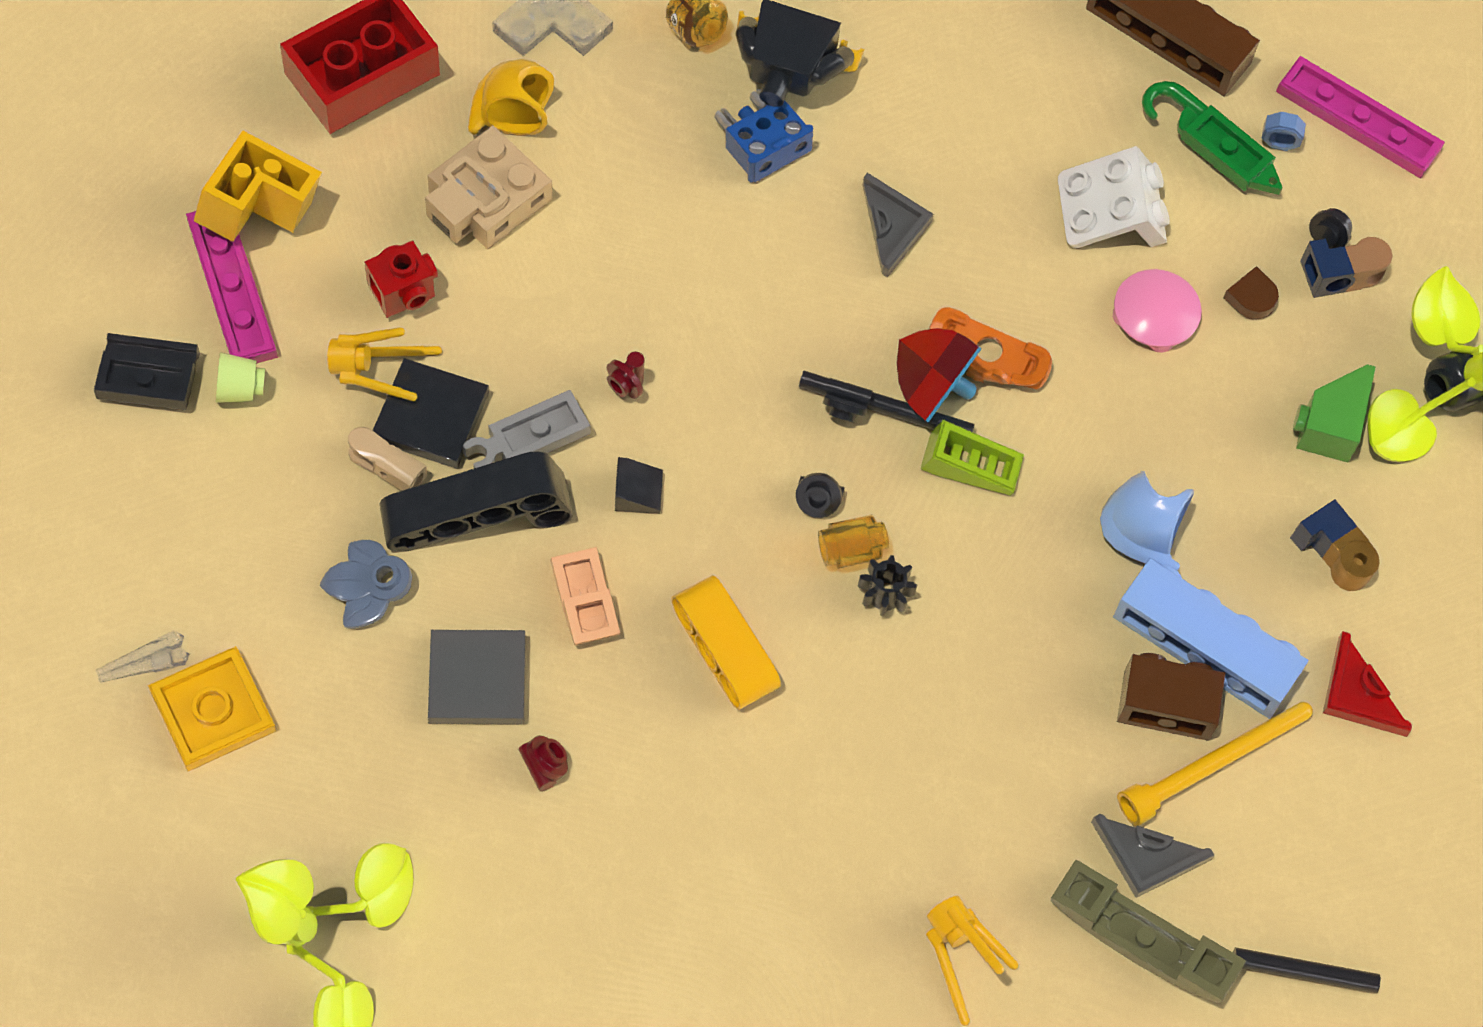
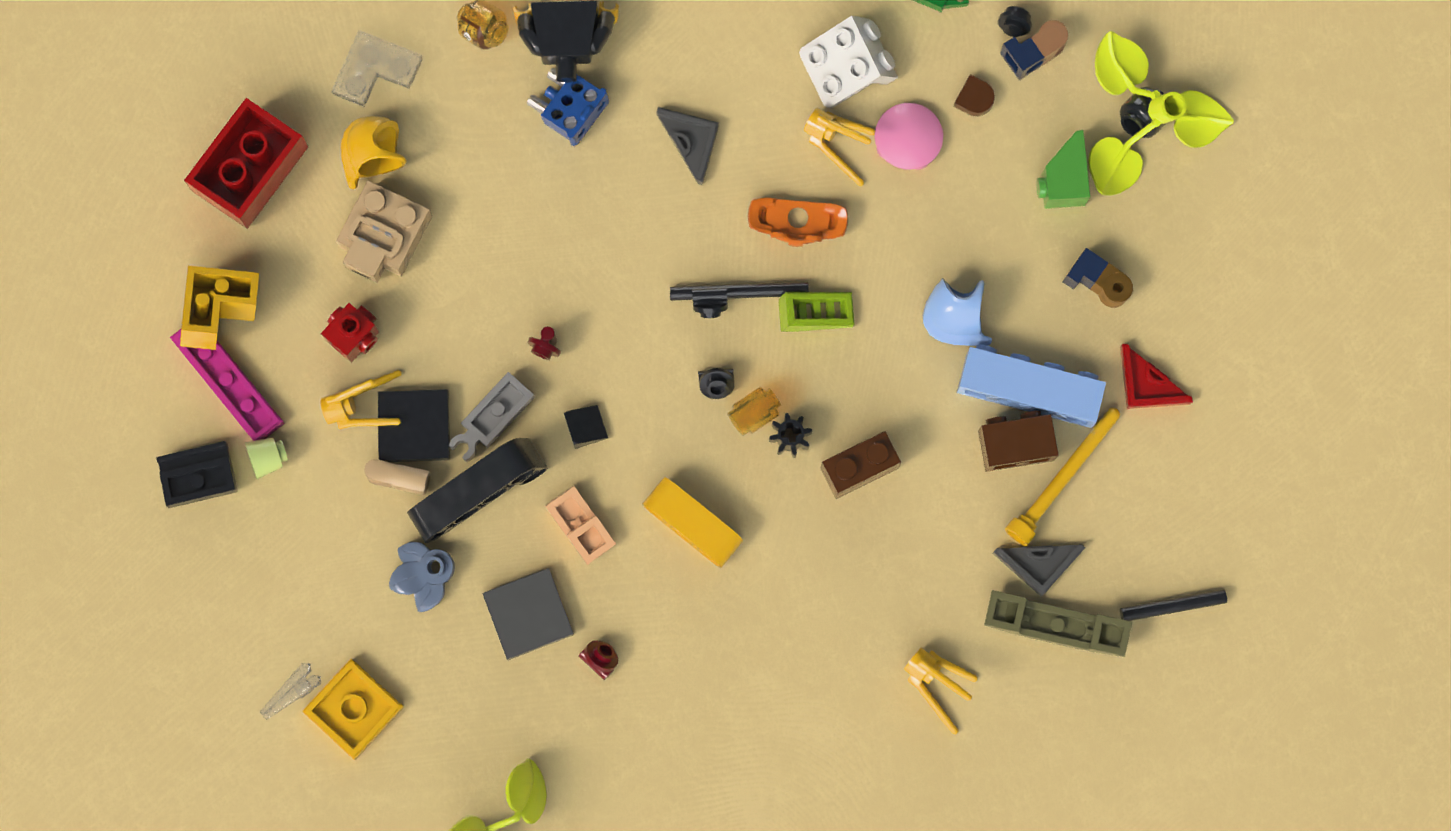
camera: 15 degrees left, 15 degrees up
(933, 366) = (764, 253): shield -> none
(962, 649) = (860, 465): none -> reddish brown brick
(1060, 261) = (825, 125): none -> yellow plant

